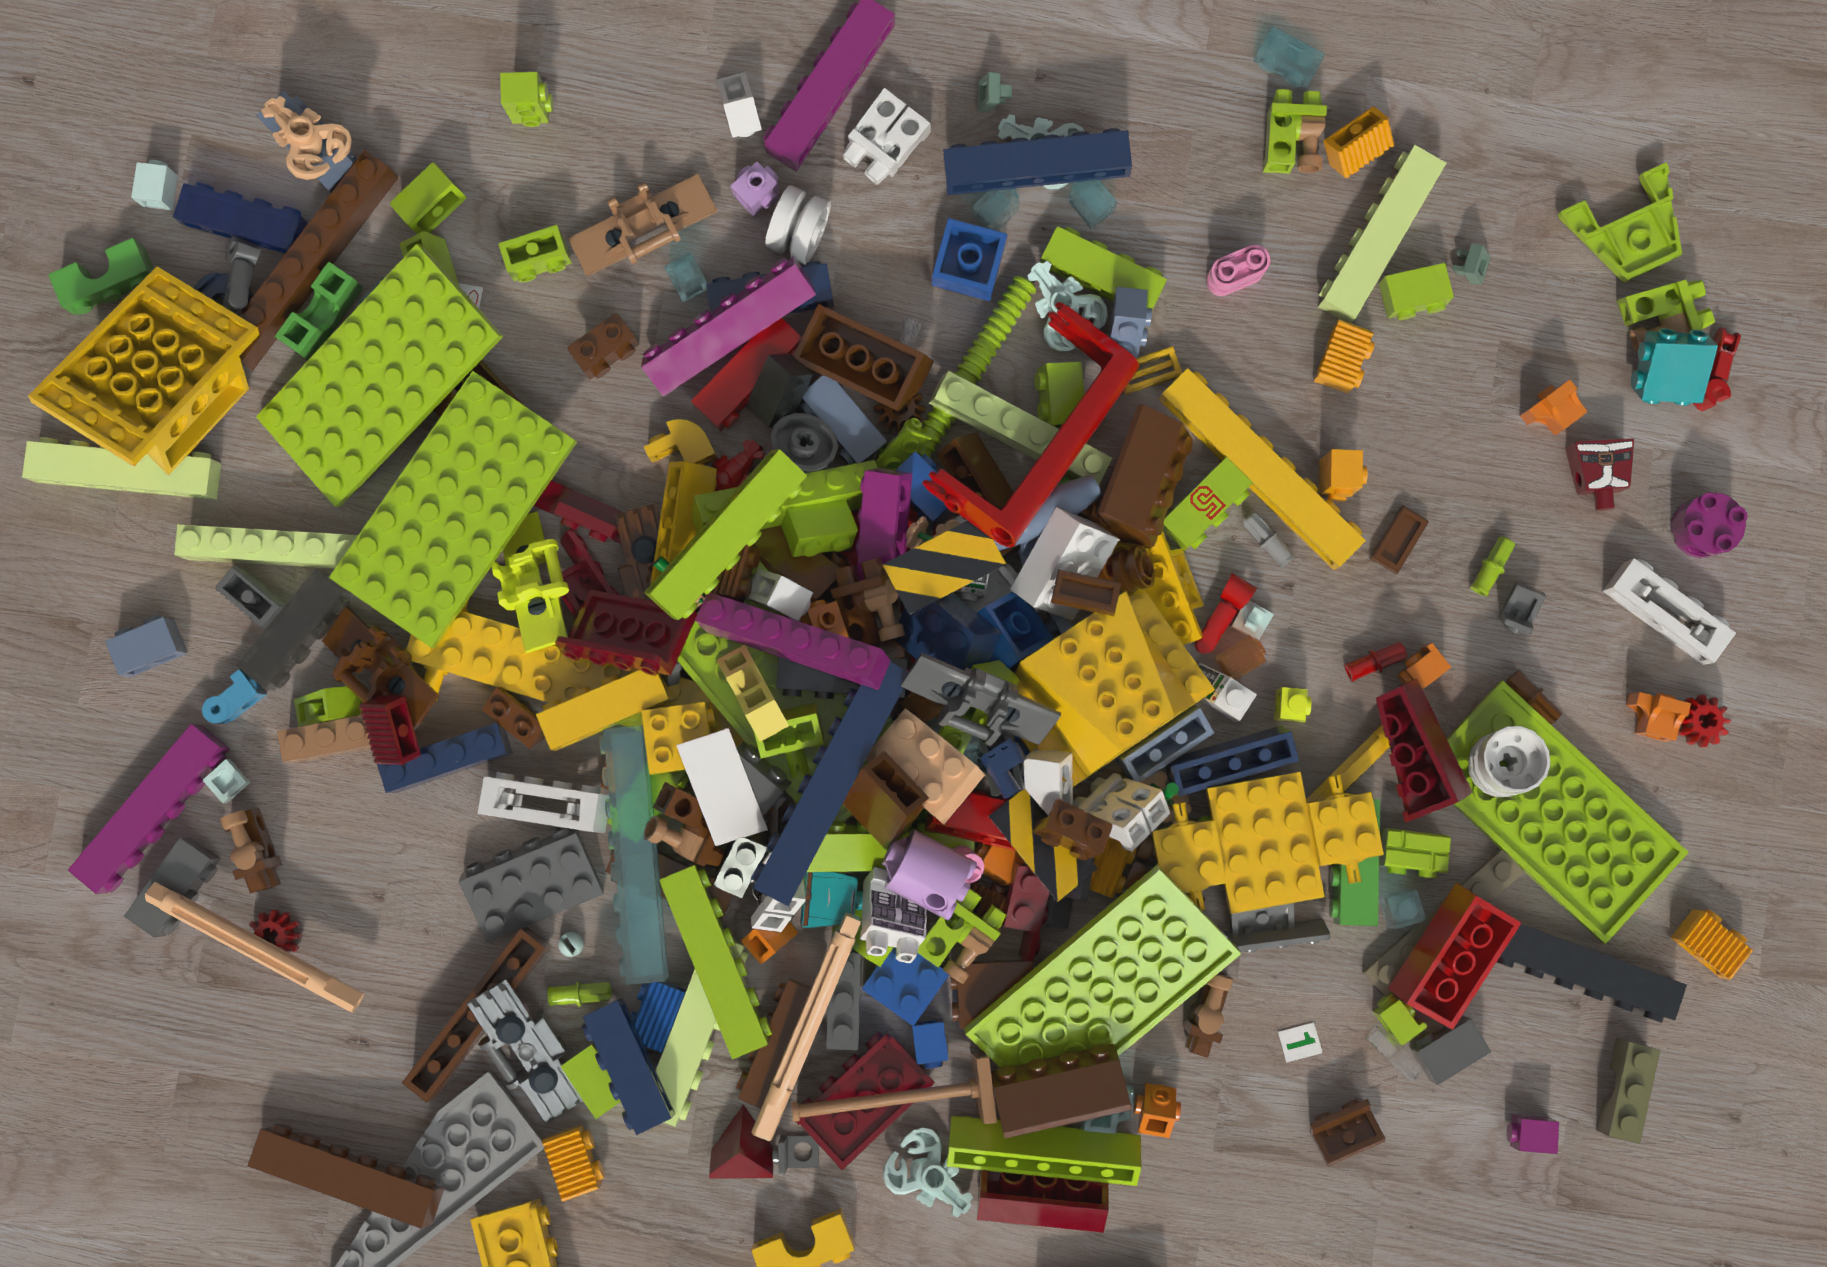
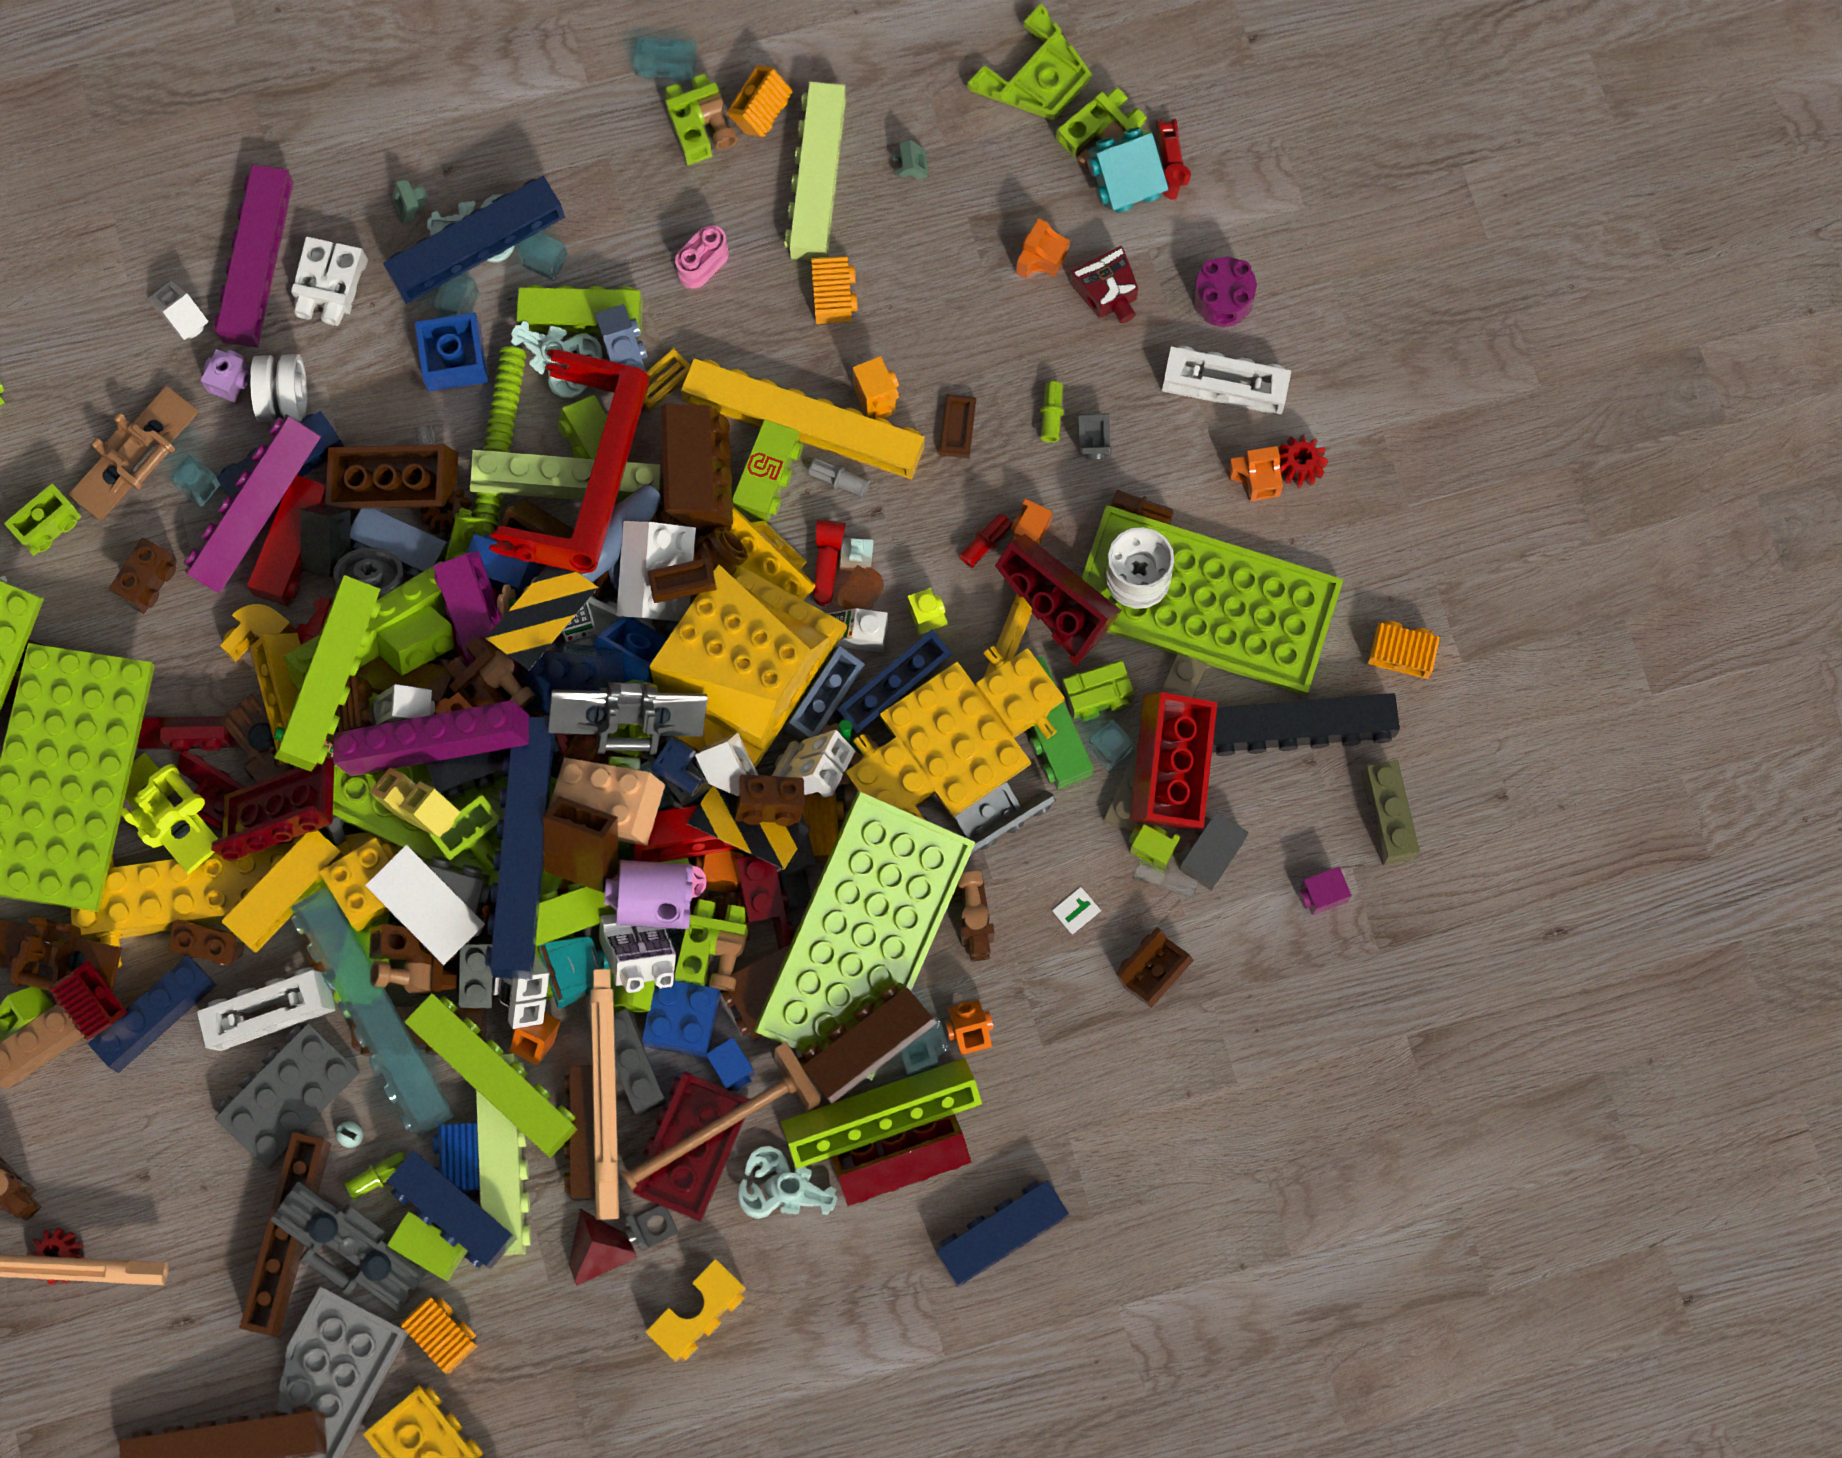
camera: 25 degrees left, 10 degrees down
(1416, 291) = (871, 206): lime brick -> none

